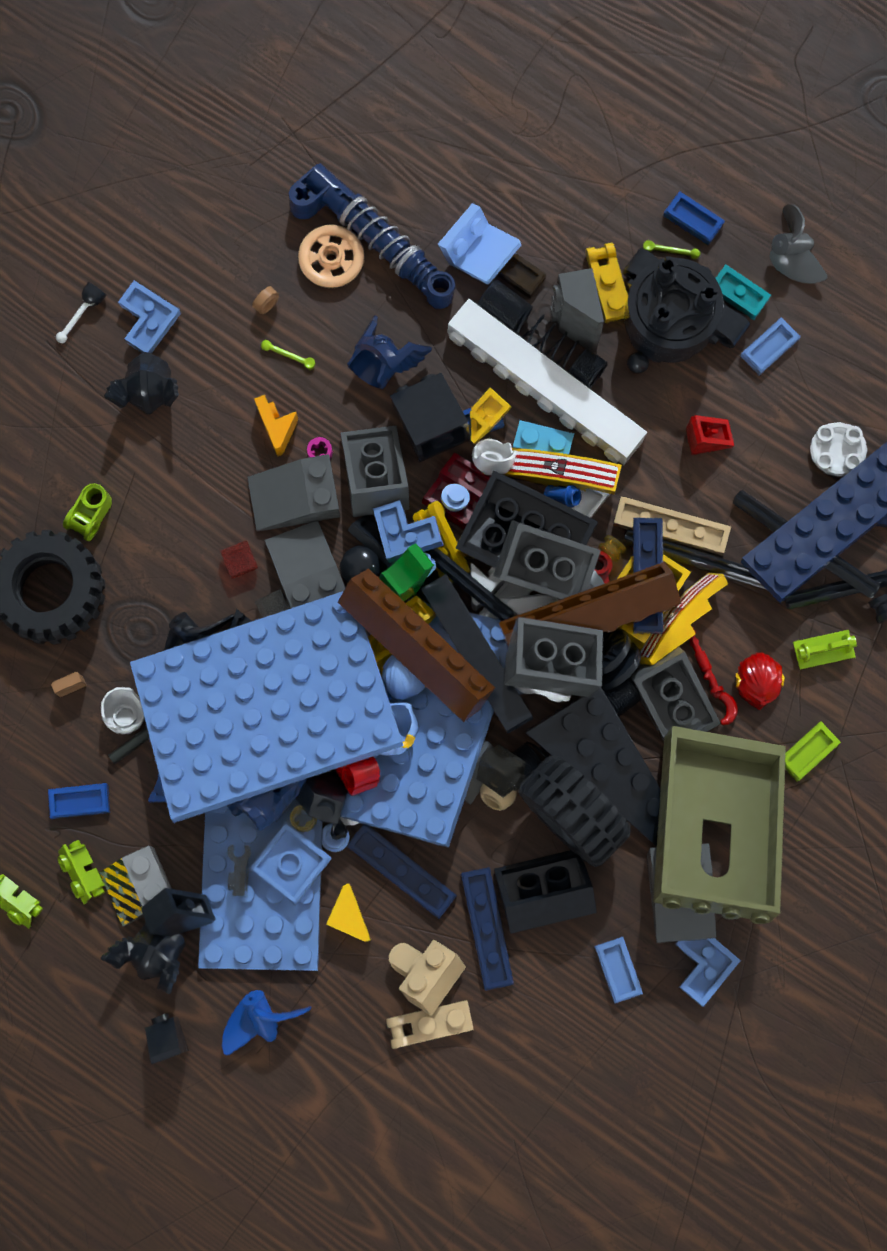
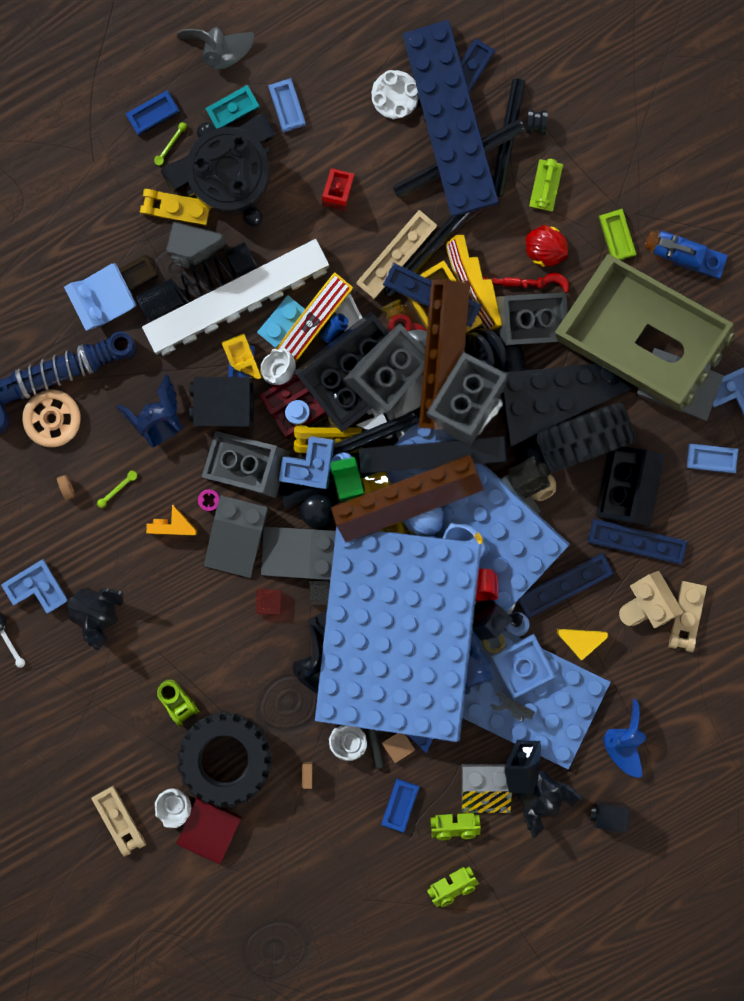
camera: 65 degrees left, 10 degrees up
(142, 769) = (398, 746): none -> medium nougat tile
(828, 833) = (686, 253): none -> blue plate

